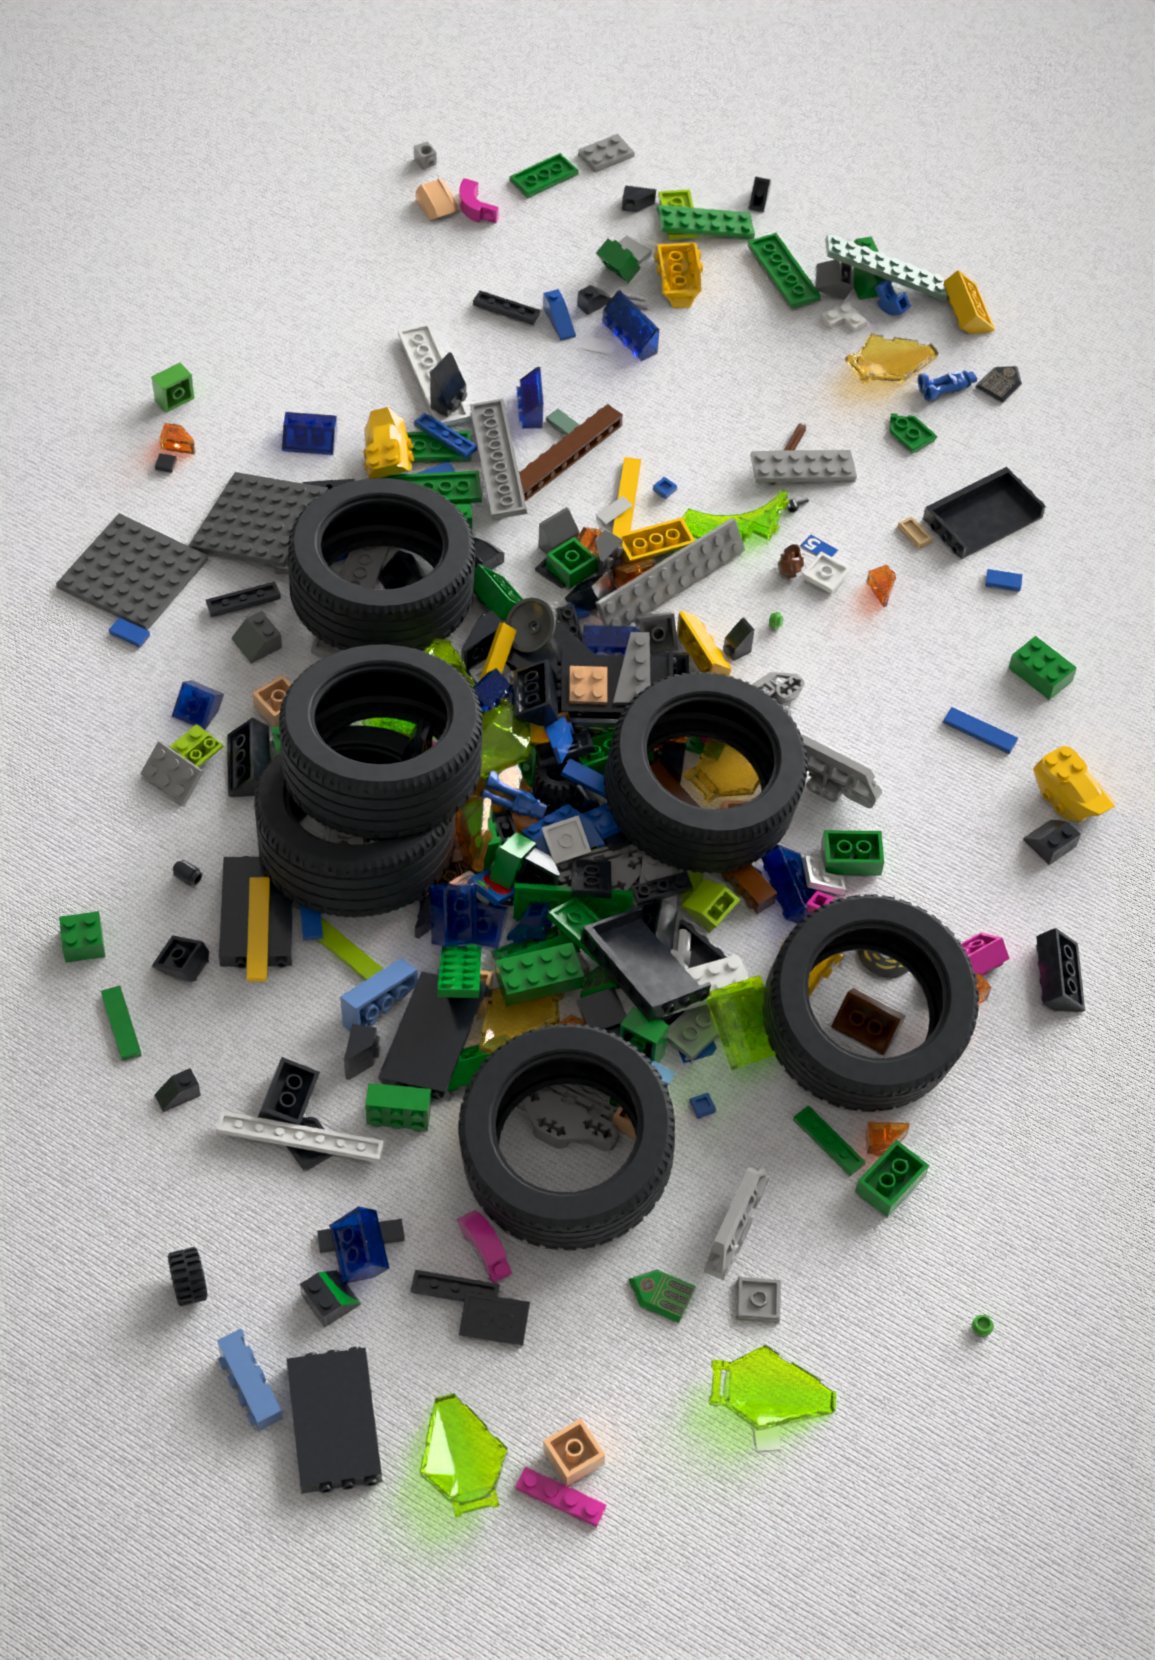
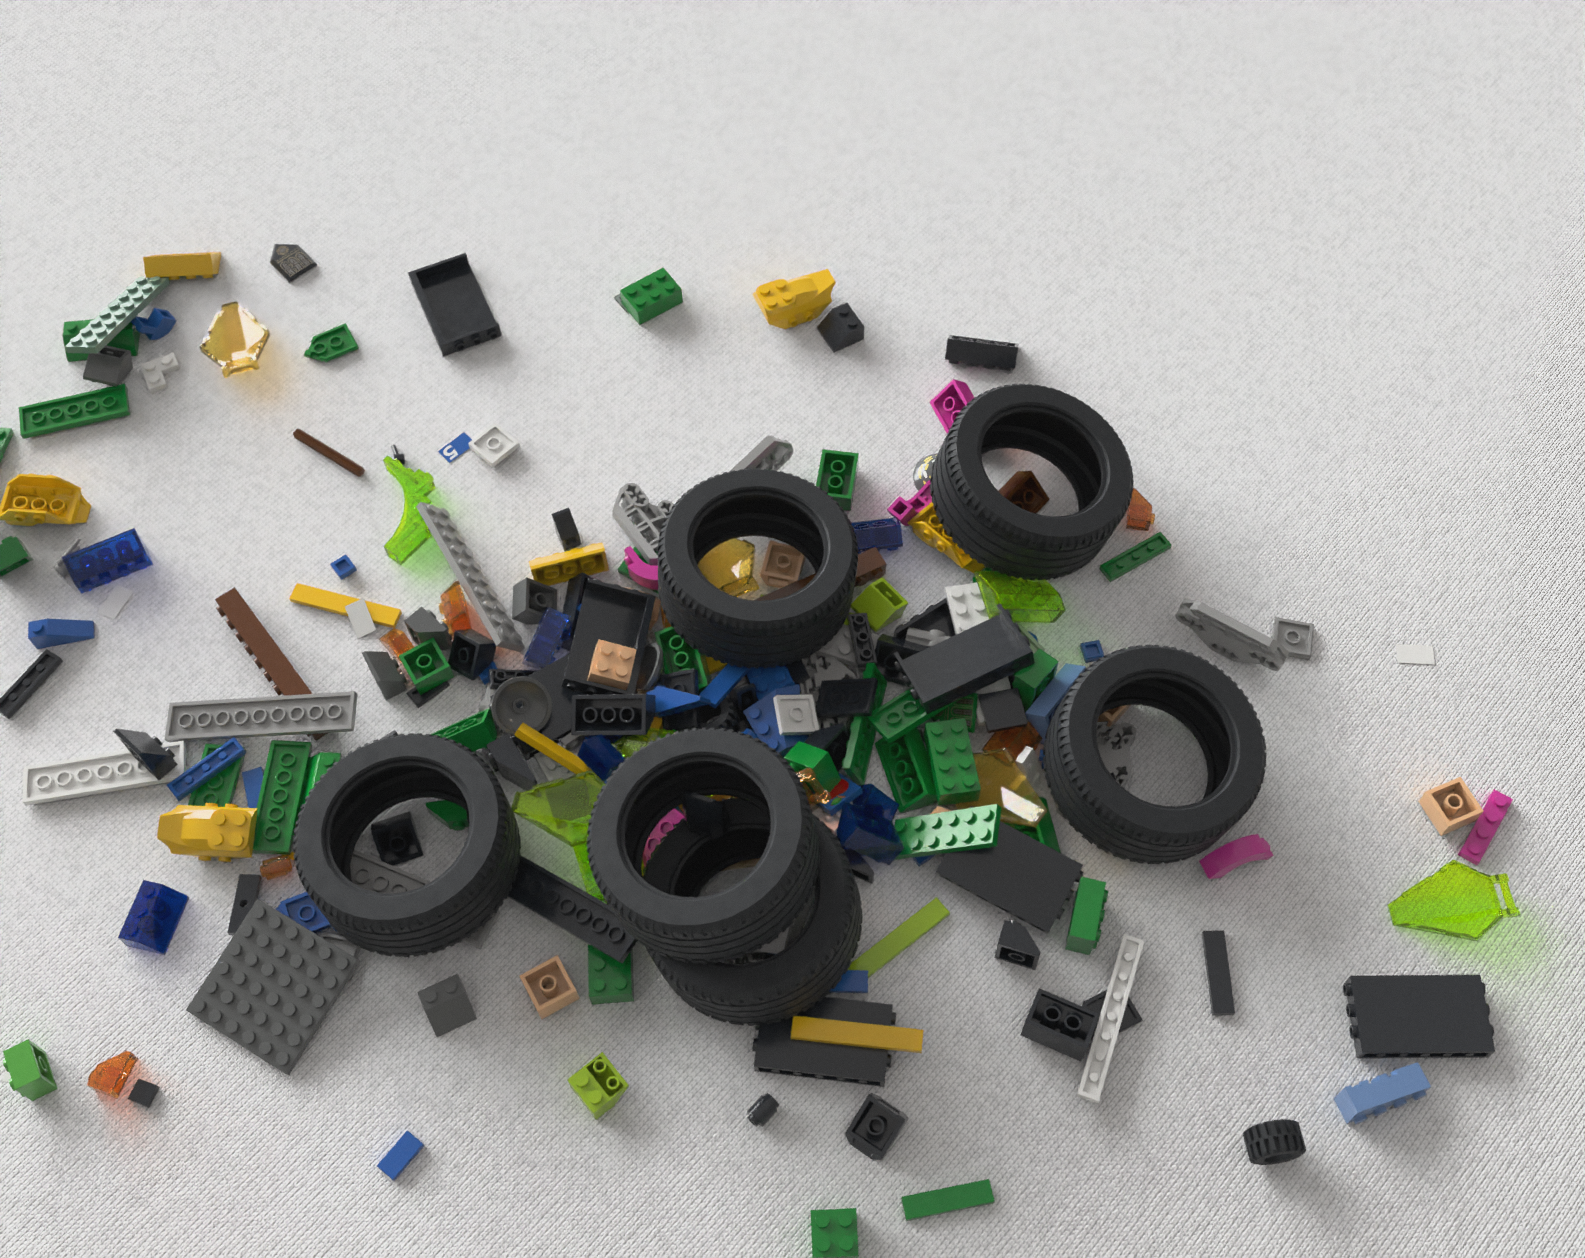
camera: 75 degrees left, 5 degrees up
(132, 571) = (305, 1147): dark grey plate -> none
(172, 772) = (625, 1115): light grey plate -> none
(178, 1090) = (1042, 1141): black slope -> none
(197, 704) = (529, 1080): clear blue slope -> none
(243, 599) = (385, 1017): black plate -> none
(247, 757) = (619, 1030): black slope -> none
(328, 1296) = (1287, 1008): black slope -> none
(359, 1245) = (1238, 971): clear blue slope -> none
(377, 994) = (951, 920): medium blue wedge -> none
(450, 1286) = (1279, 890): black plate -> none
(494, 1318) = (1313, 858): black tile -> none
(530, 400) = (182, 672): clear blue slope -> none
(531, 923) = (884, 764): slope -> none
(561, 422) = (221, 650): sand green tile -> none
(592, 299) = (49, 596): black slope -> none
(635, 668) = (604, 618): light grey wedge -> none
(655, 540) = (422, 579): yellow slope -> none
(662, 1294) = (1285, 713): green tile -> none
(769, 1390) = (1386, 642): clear neon green windscreen -> none
(776, 620) = (544, 496): bright green plate -> none
(791, 561) = (475, 469): reddish brown head -> none
(803, 466) = (352, 440): light grey plate -> none
(819, 879) = (862, 510): white plate -> none
(882, 582) = (522, 400): clear orange slope -> none
(891, 1178) = (1184, 512): green brick -> none
(915, 532) = (461, 365): tan tile -> none
(954, 382) = (281, 295): blue piece -> none
(980, 730) = (708, 359): blue tile -> none
(982, 1325) = (1320, 475): bright green plate -> none
(1003, 580) = (537, 306): blue tile -> none

